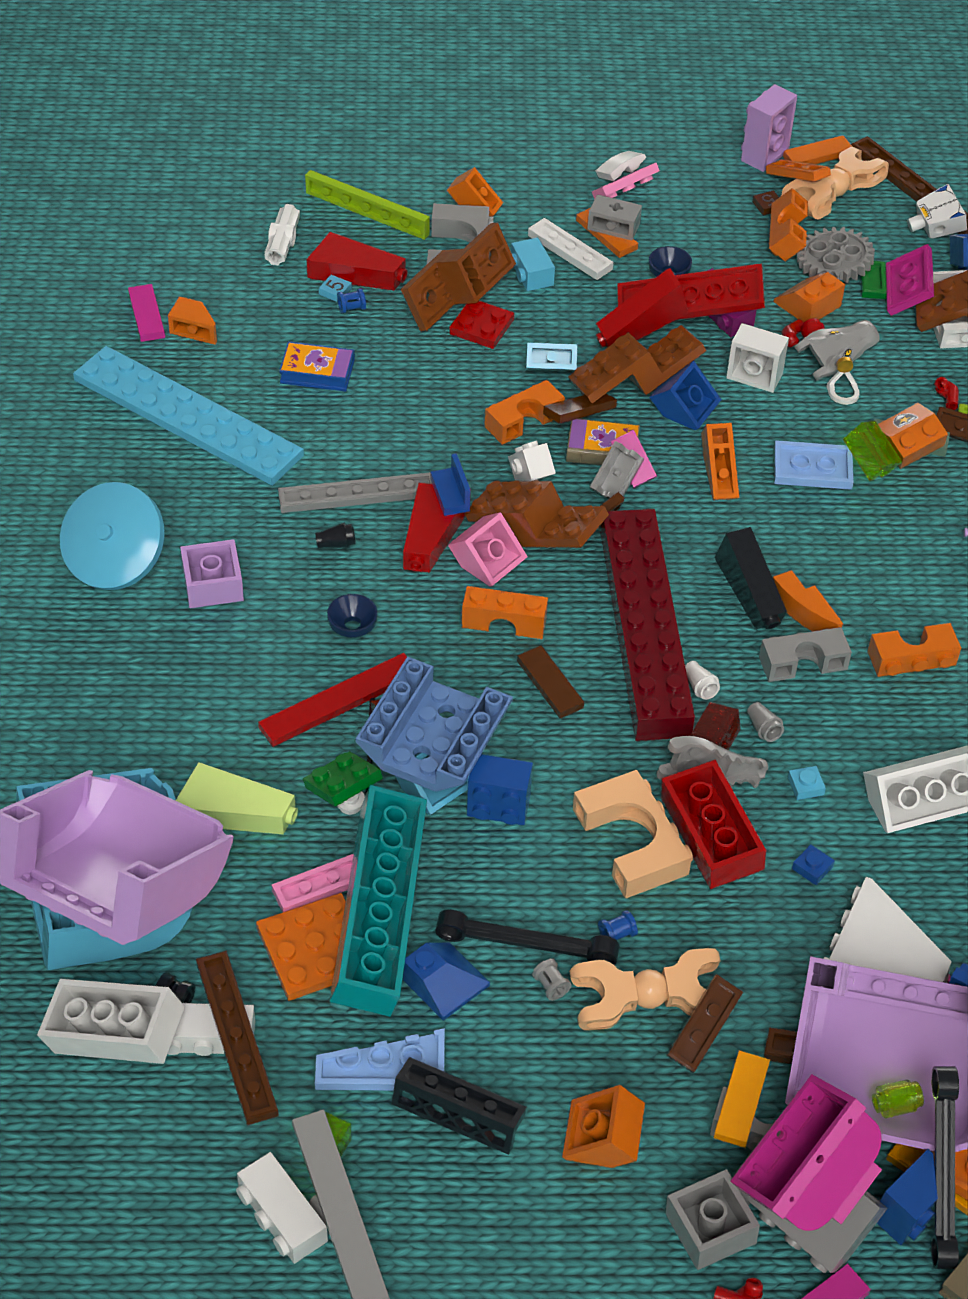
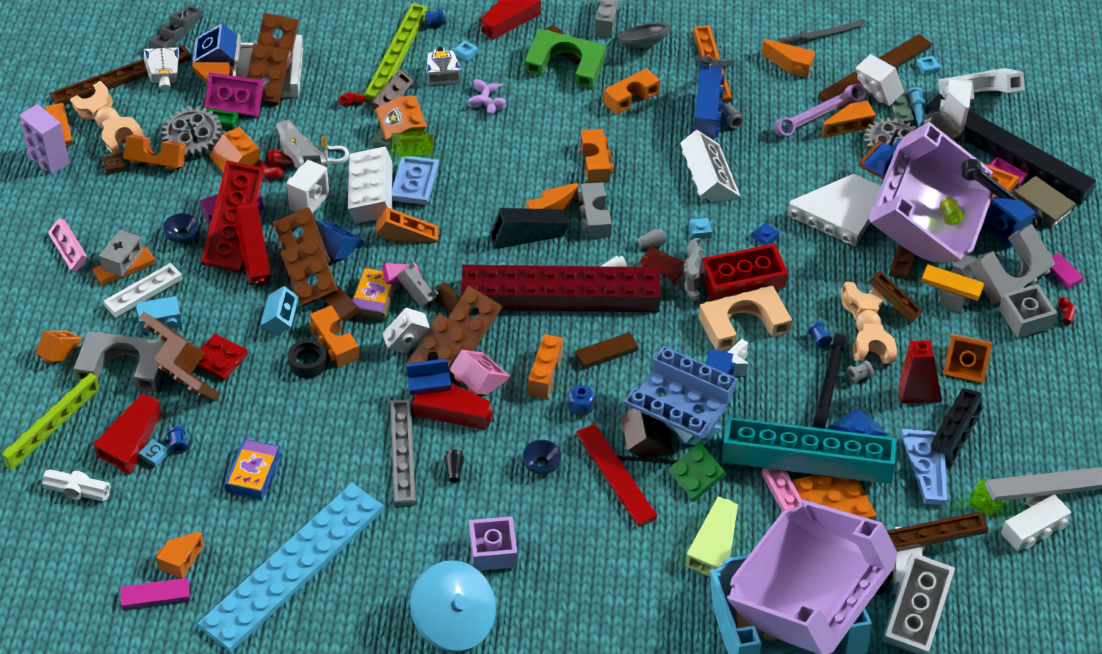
camera: 85 degrees left, 0 degrees up
(449, 650) = (581, 400): none -> blue head
(481, 380) = (307, 370): none -> black tyre
(530, 1037) = (919, 375): none -> red slope
(548, 817) = (740, 354): none -> white slope
(621, 162) = (45, 245): white slope -> none
(783, 416) = (369, 184): none -> white brick
(798, 170) = (90, 135): orange tile -> none
(817, 1161) = (1012, 241): dark pink container -> none
(941, 253) = (203, 69): none -> orange slope

